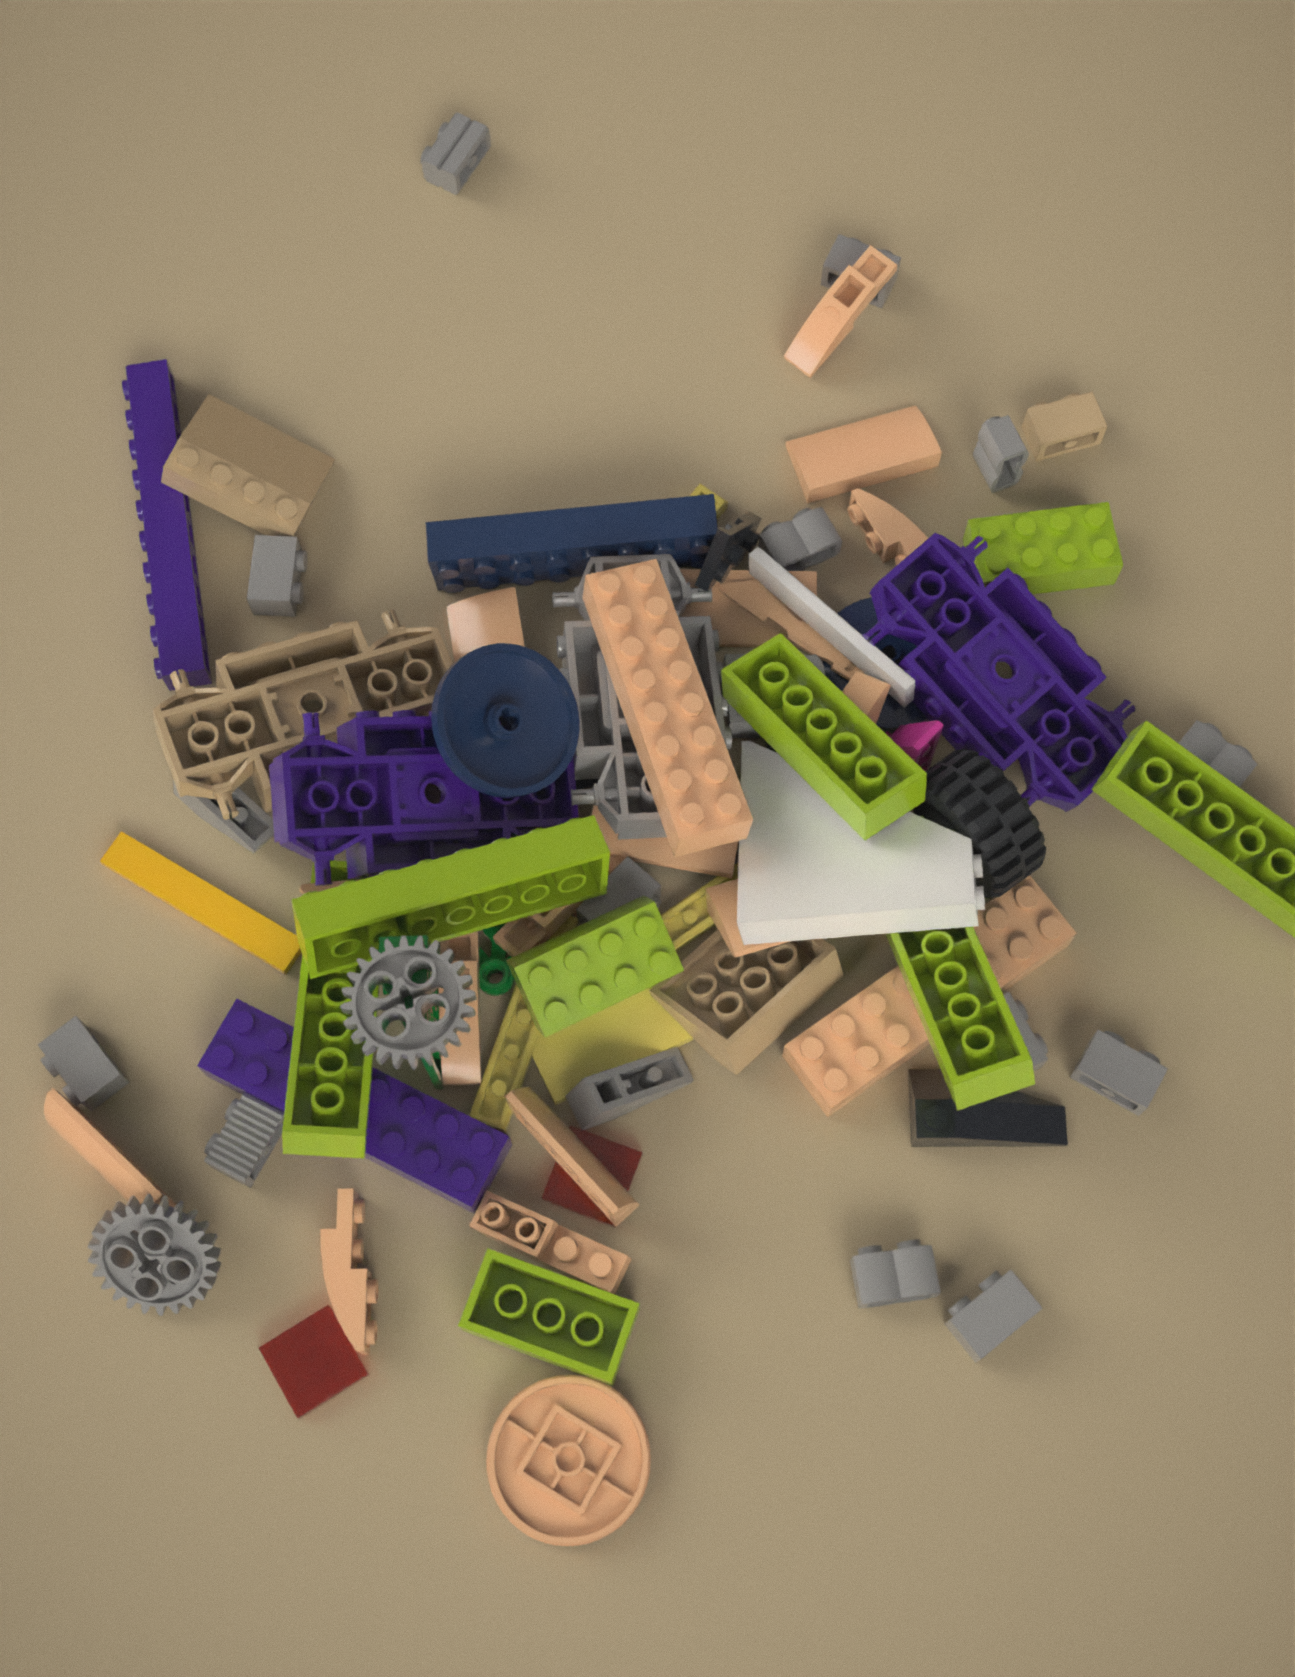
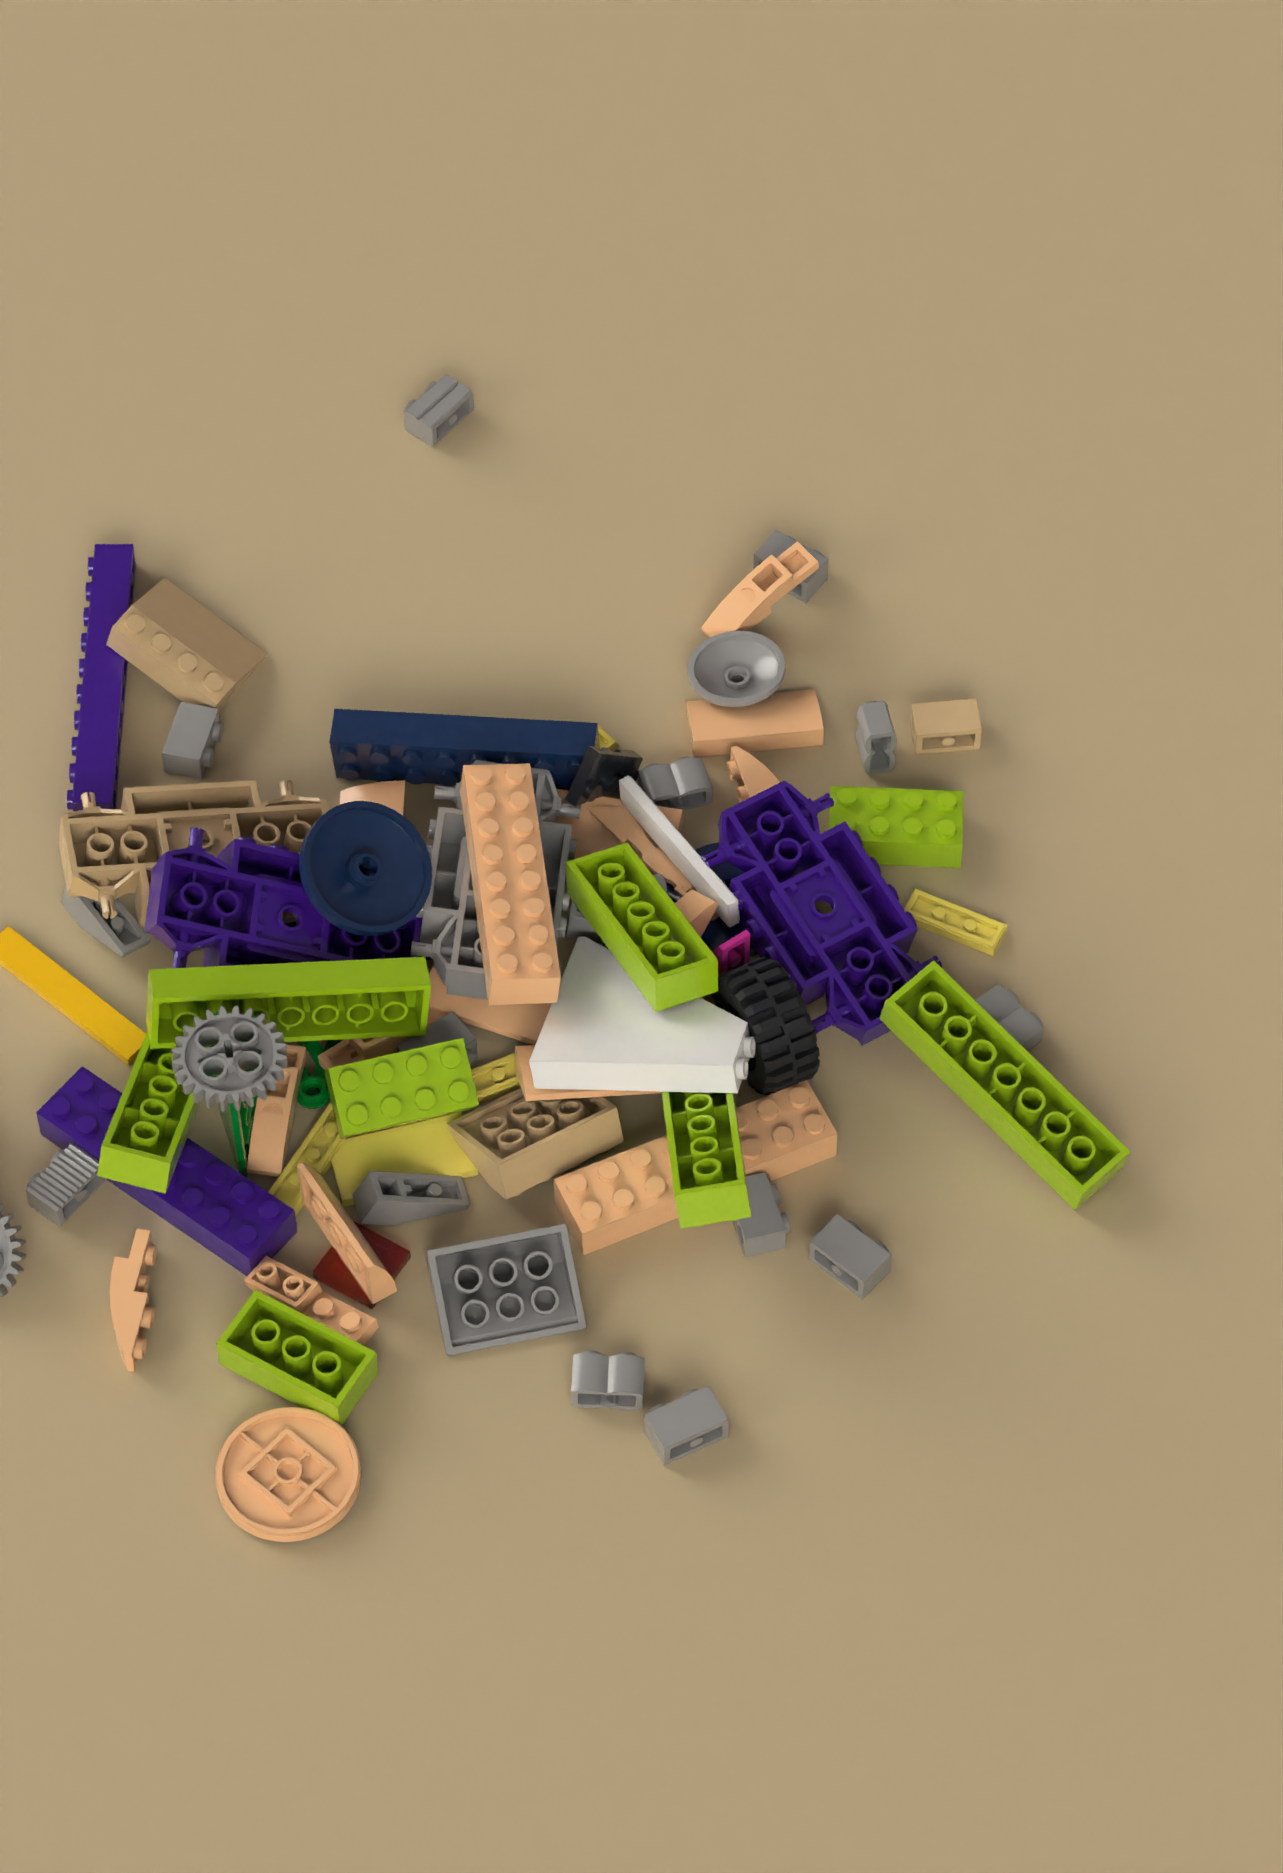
camera: 10 degrees right, 15 degrees down
(313, 1362) = (85, 1366): clear red tile -> none
(757, 1181) = (505, 1289): none -> light grey slope
(832, 385) = (736, 668): none -> light grey dish
(998, 1122) = (709, 1270): black wedge -> none
(1129, 649) = (956, 922): none -> light yellow tile

